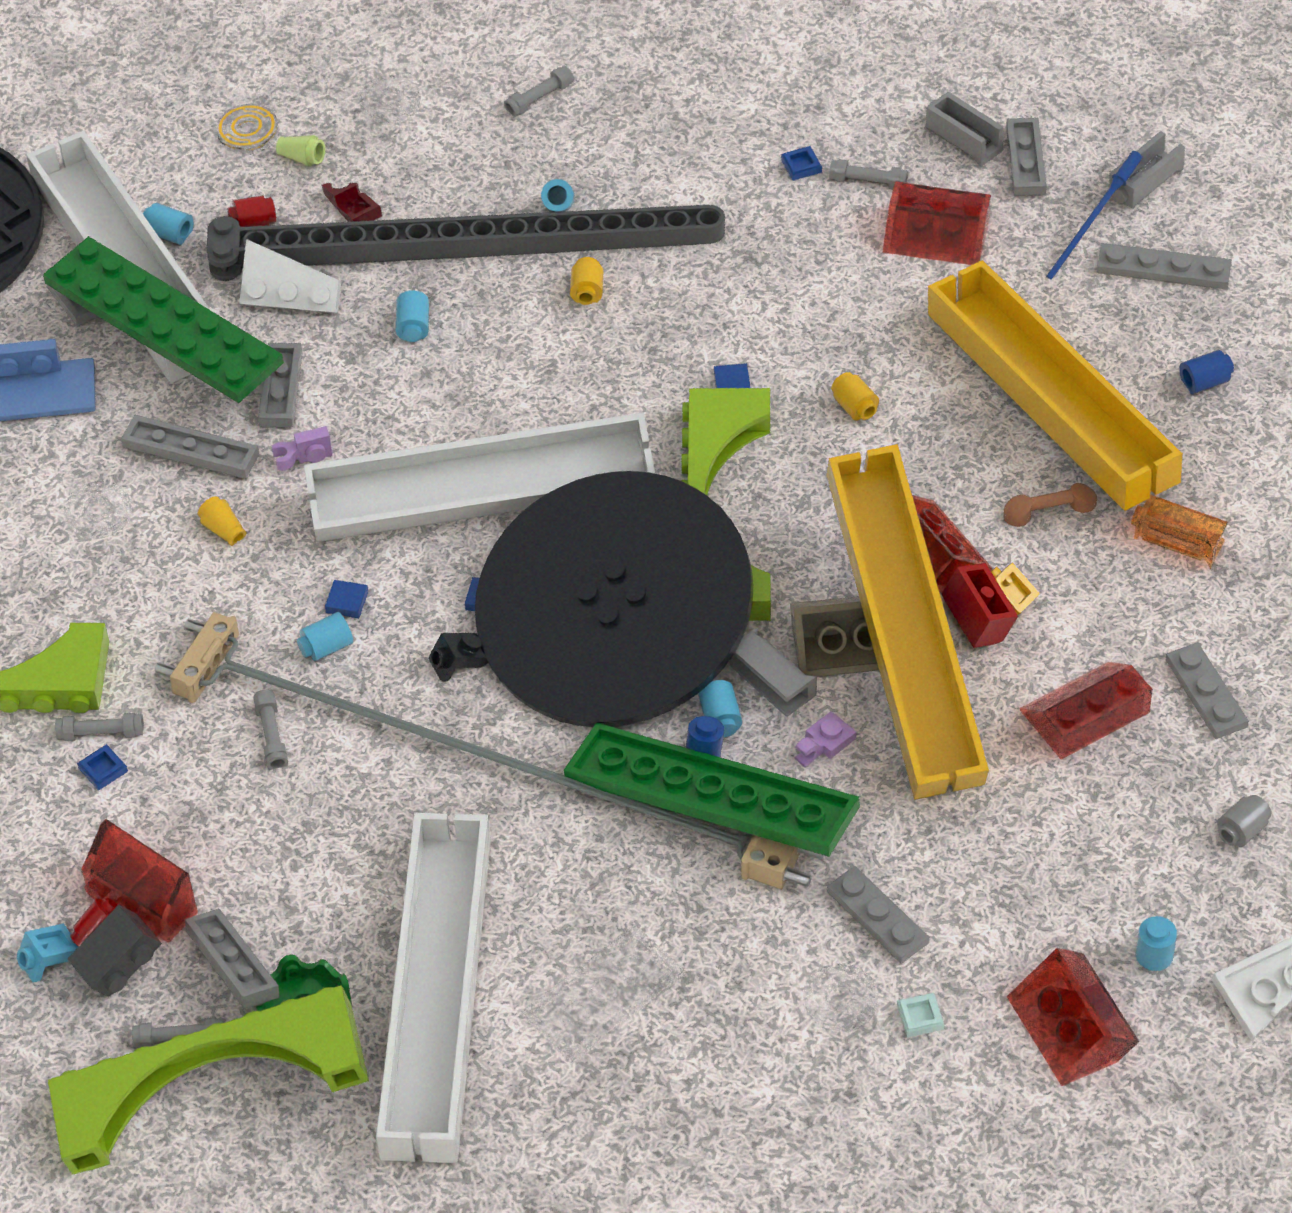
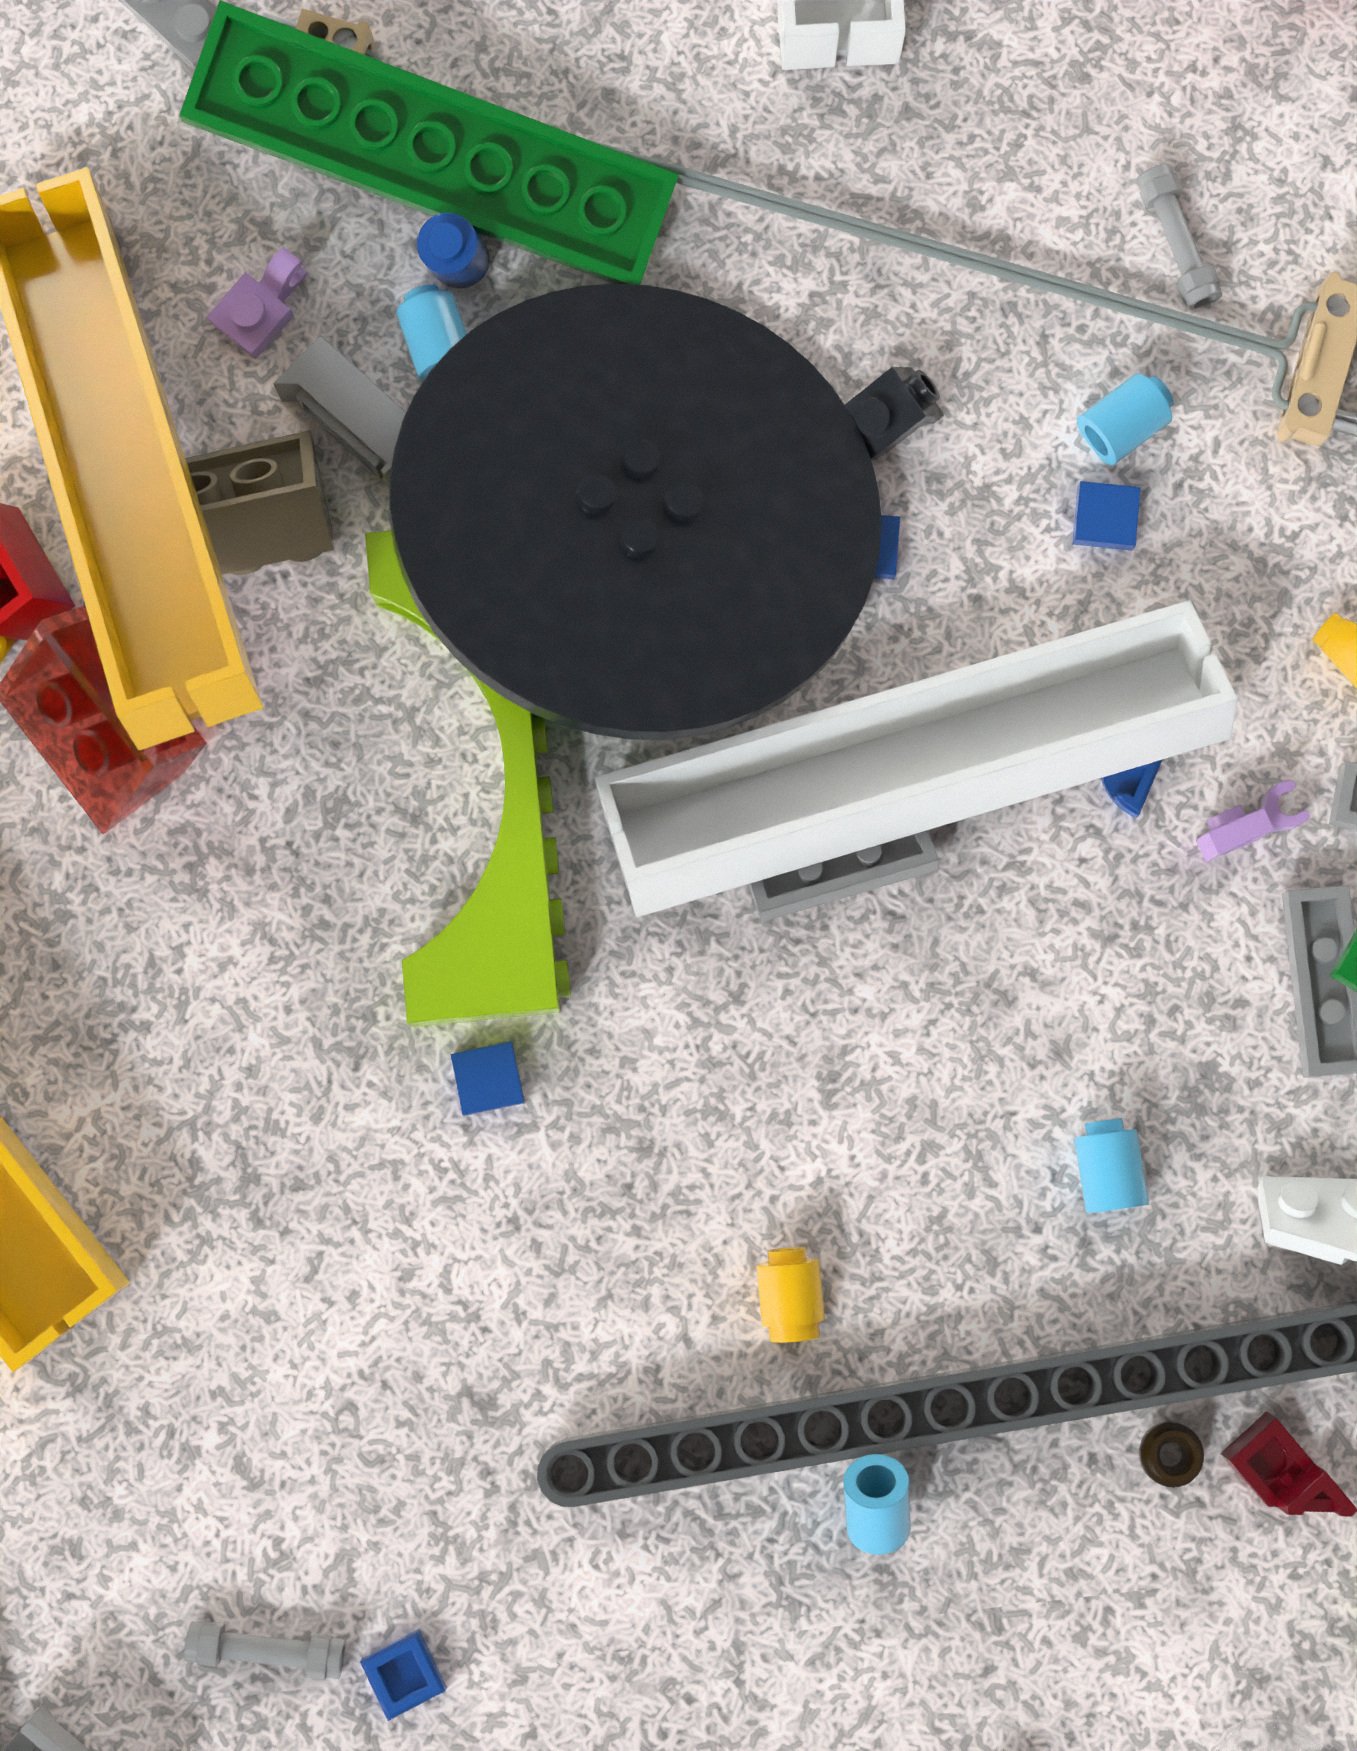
camera: 170 degrees right, 30 degrees up
(407, 209) = (1189, 1464): none -> dark brown plate
(855, 396) = (252, 1045): yellow brick -> none
(937, 223) = (117, 1507): clear red slope -> none

